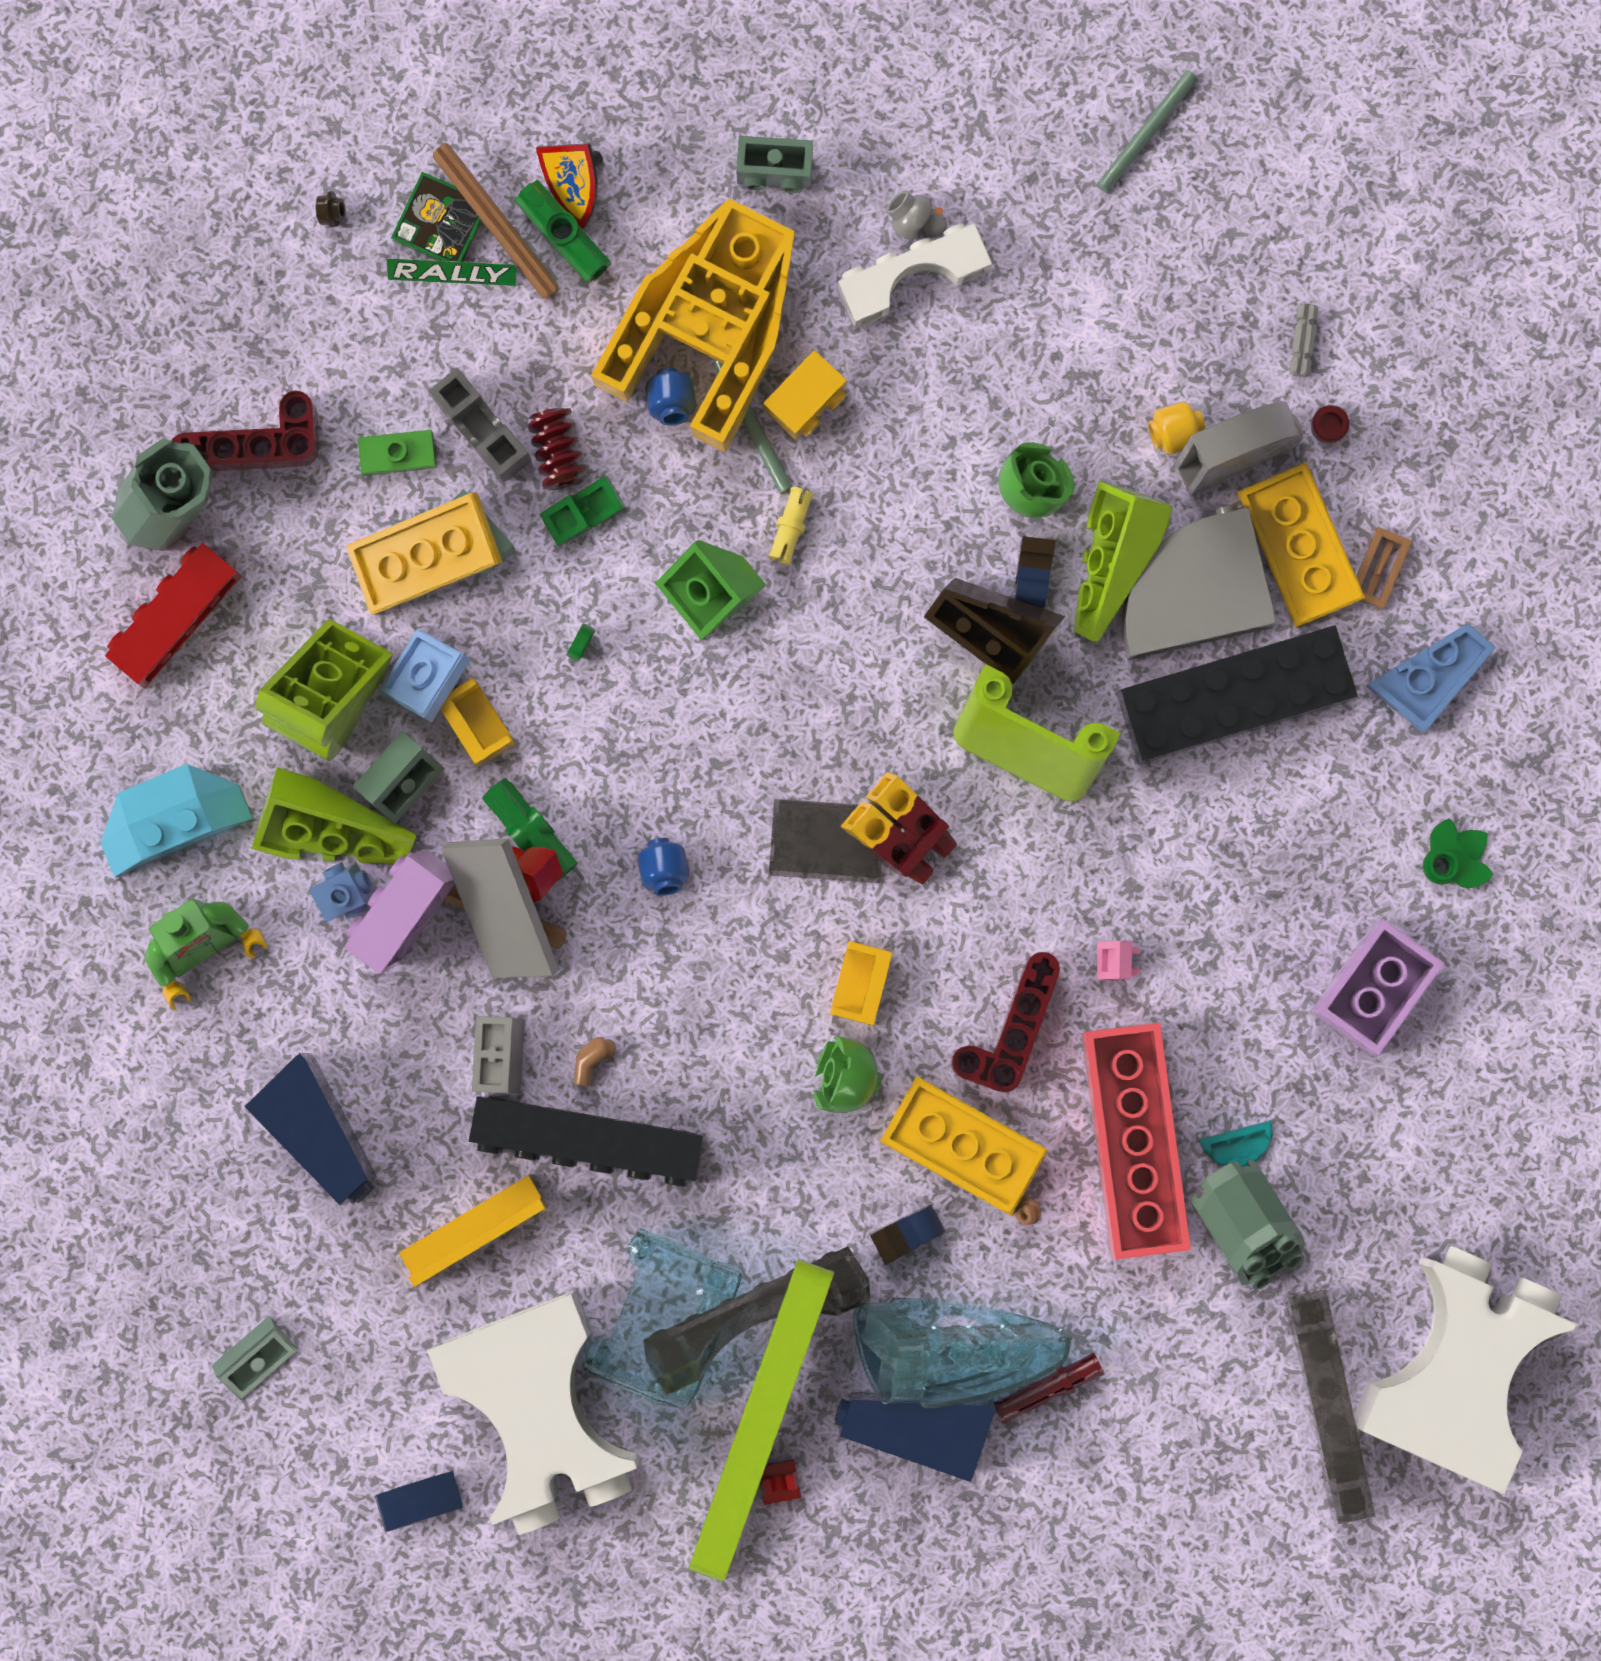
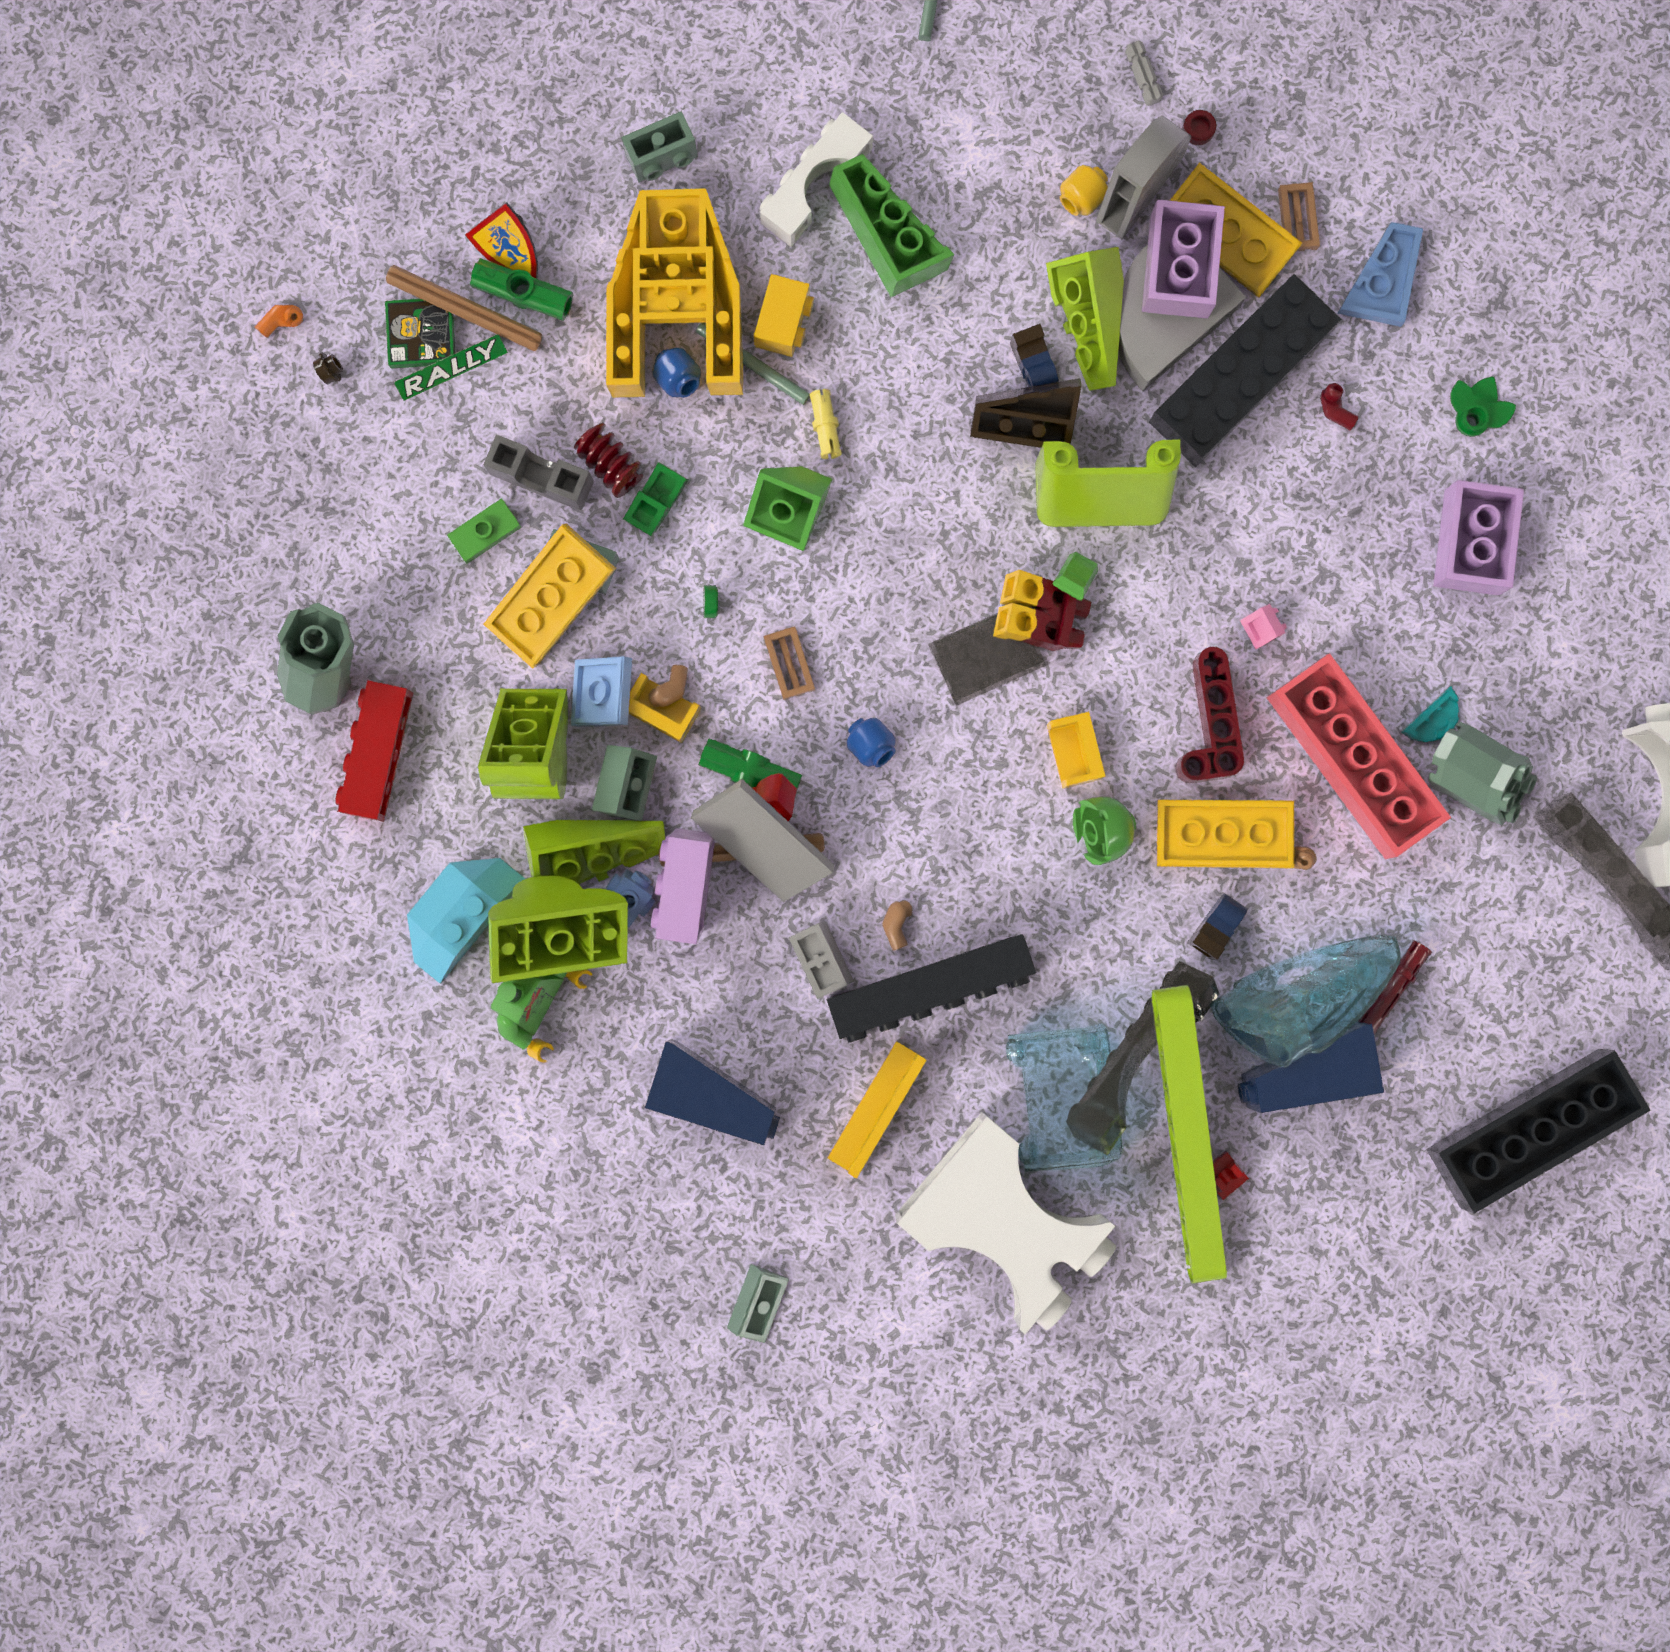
camera: 30 degrees left, 0 degrees up
(246, 440) = (386, 566): dark red beam -> none
(252, 886) = (556, 929): none -> lime brick
(311, 132) = (279, 317): none -> orange arm
(418, 1501) = (950, 1346): dark blue slope -> none
(495, 711) = (672, 690): none -> medium nougat arm
(632, 713) = (780, 636): none -> medium nougat tile
(913, 213) = (790, 132): light grey animal -> none
(954, 811) = (1076, 575): none -> bright green tile
(957, 368) = (891, 235): none -> bright green wedge
(1035, 481) = (998, 288): bright green cylinder -> none
(1110, 1604) = (1538, 1130): none -> black brick
(1227, 553) = (1183, 259): none -> lavender brick
(1308, 779) = (1333, 407): none -> dark red arm

